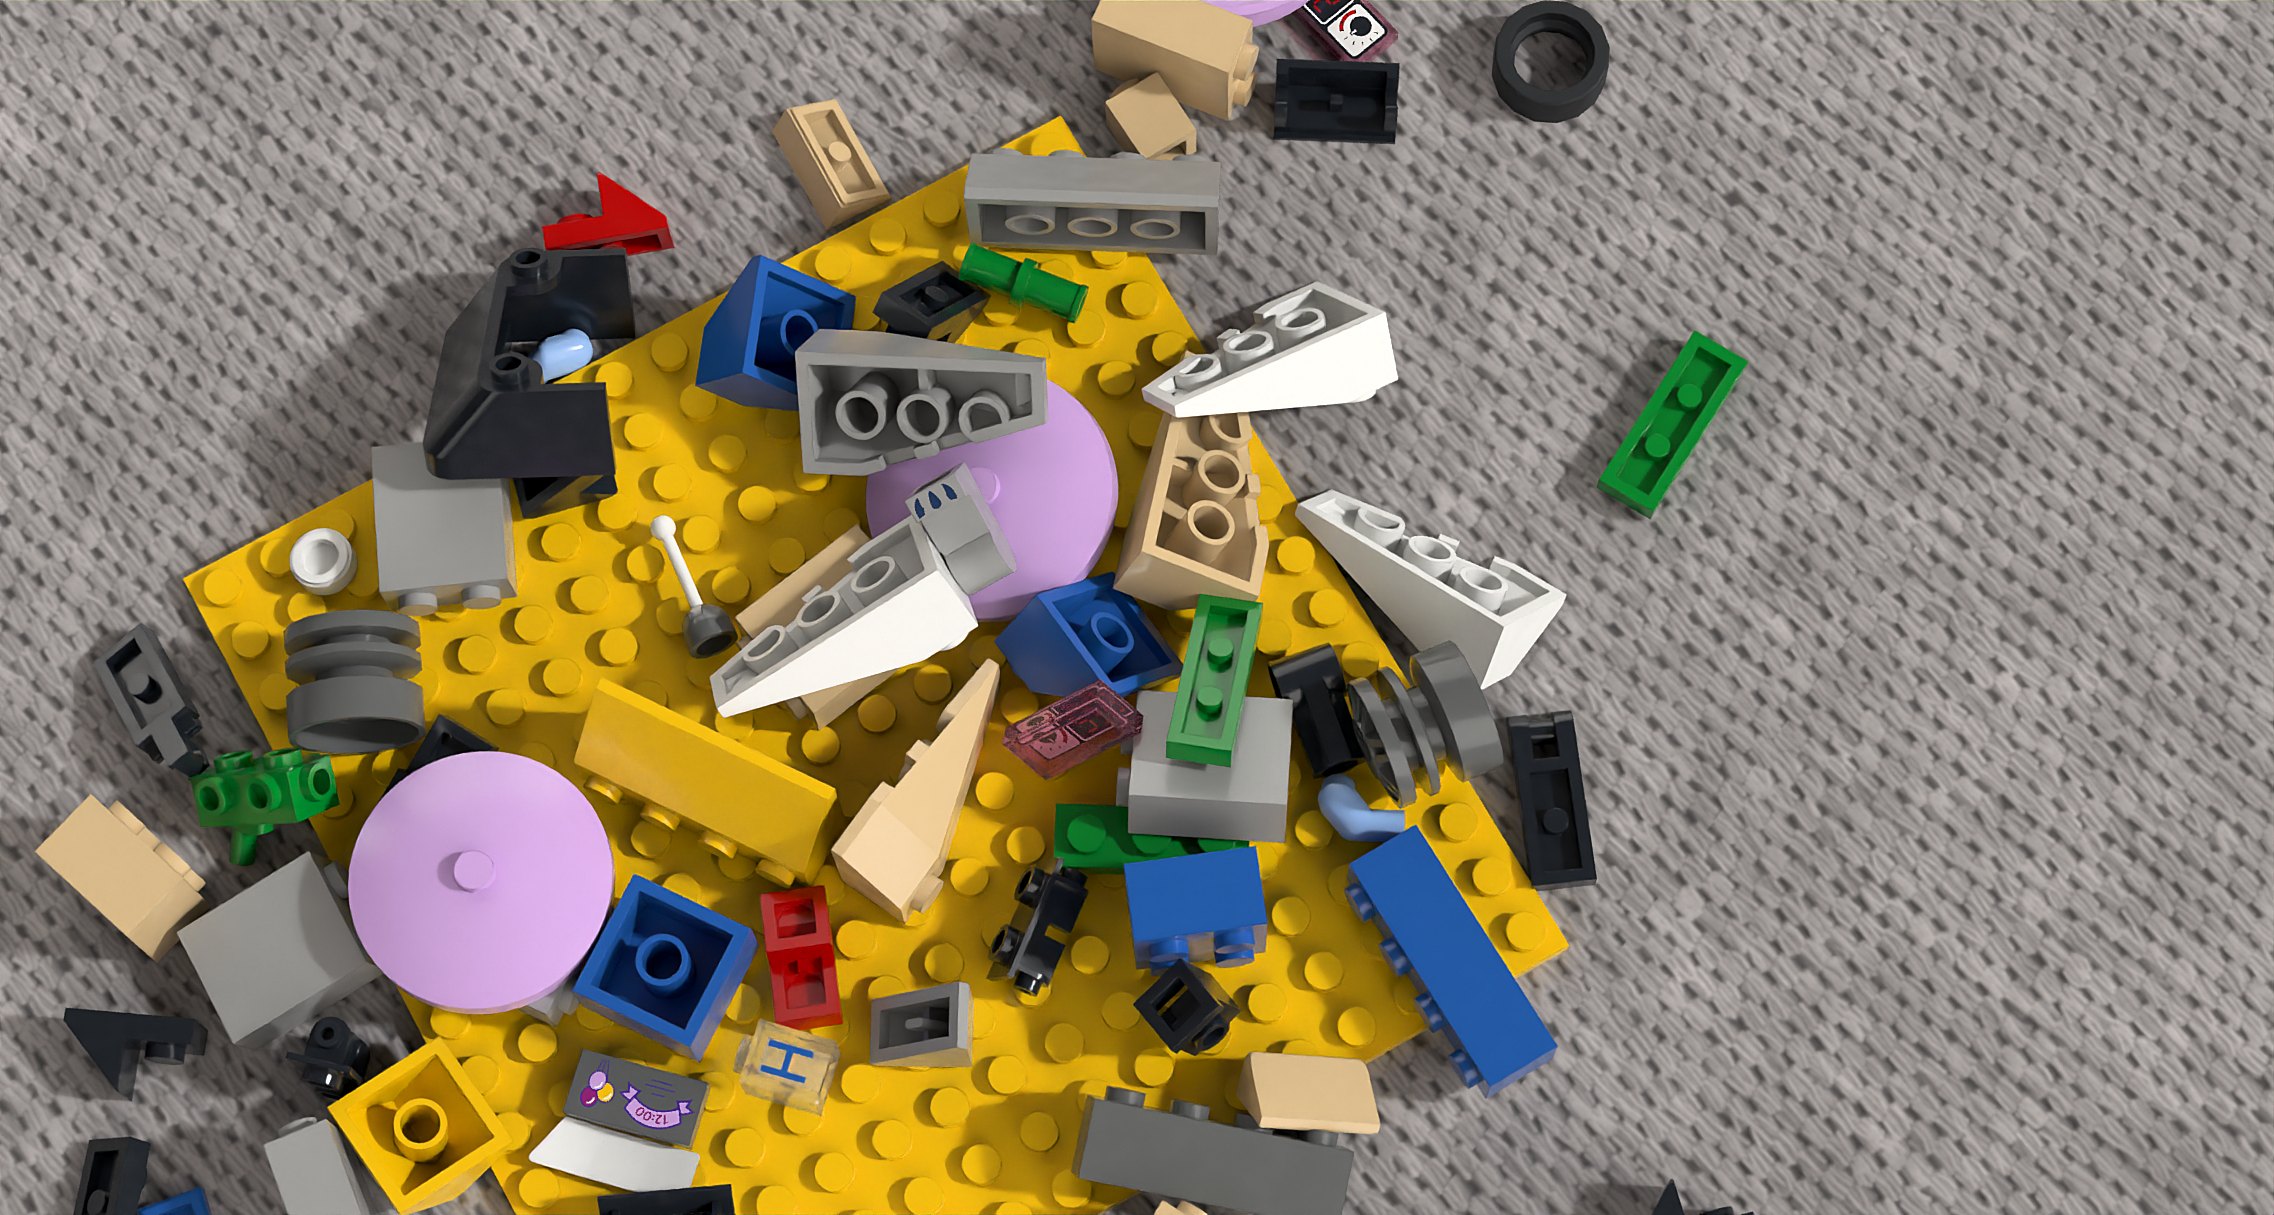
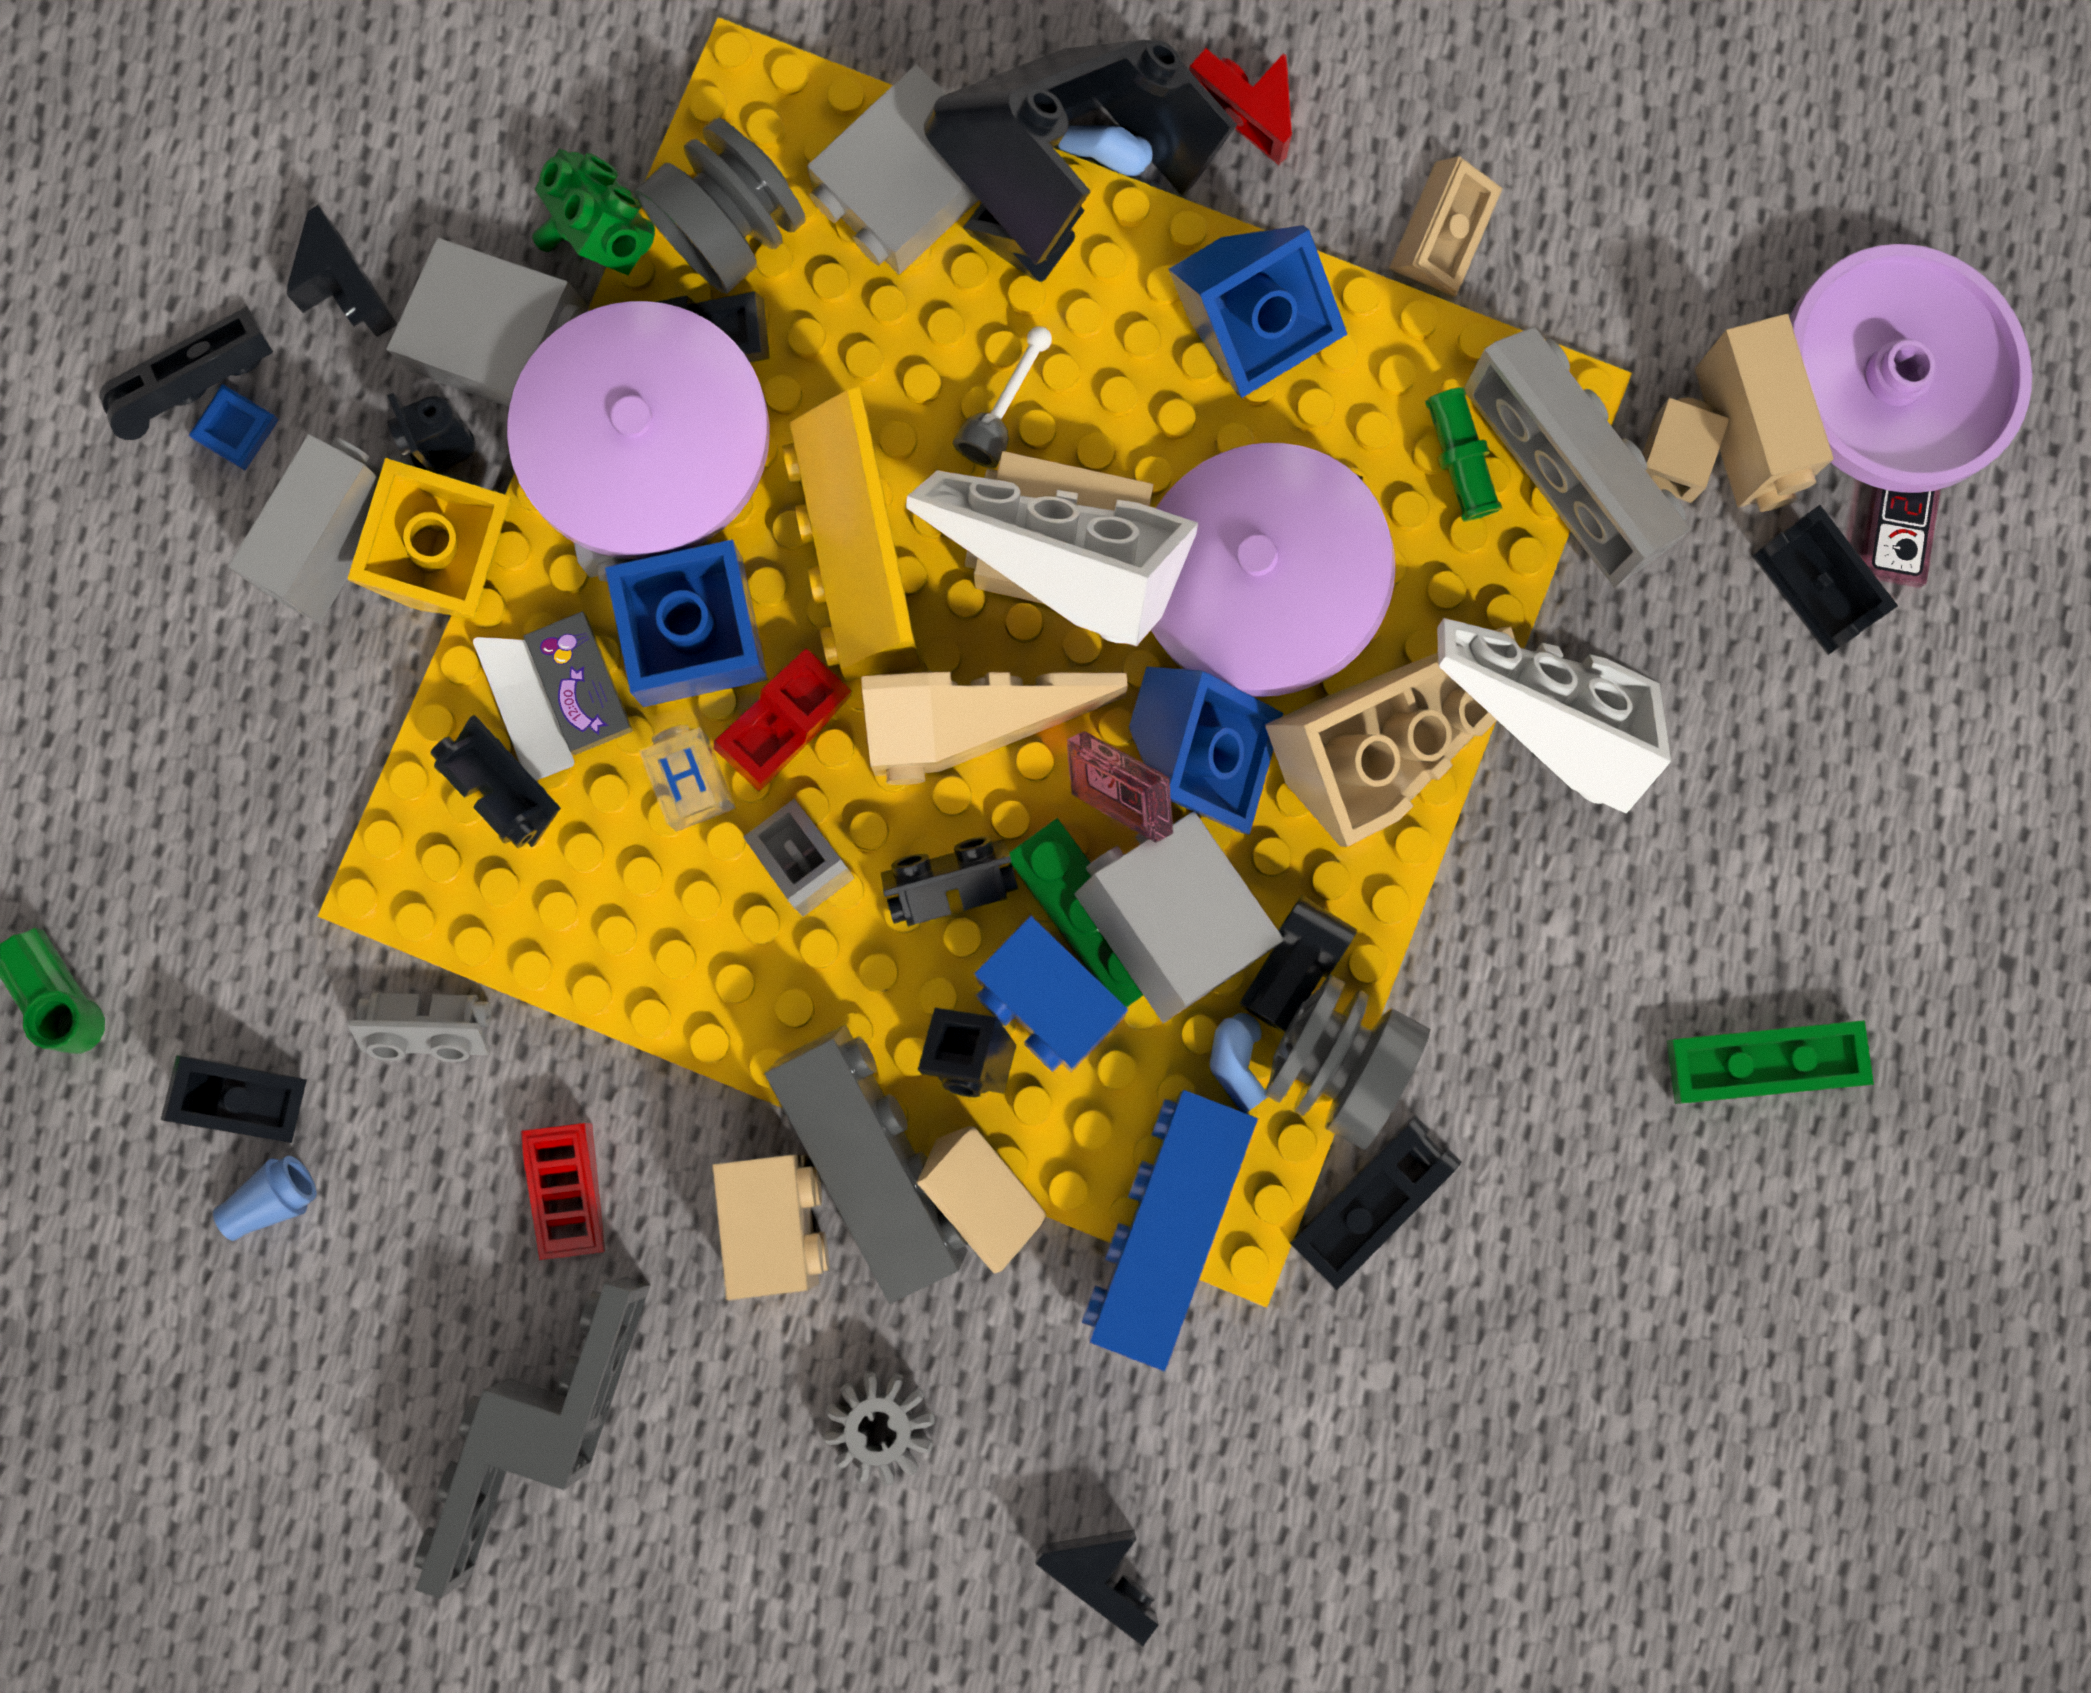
camera: 50 degrees right, 10 degrees up
(114, 867) = (447, 163): tan brick -> none
(153, 701) = (602, 74): black hinge -> none
(323, 561) = (808, 107): white tile -> none
(904, 397) = (1281, 434): light grey wedge -> none
(931, 305) = (1380, 400): black slope -> none
(963, 529) = (1209, 569): light grey leg -> none
(1214, 680) = (1246, 867): green plate -> none
(1430, 590) = (1471, 979): white wedge -> none
(1550, 105) = (2043, 698): black tyre -> none

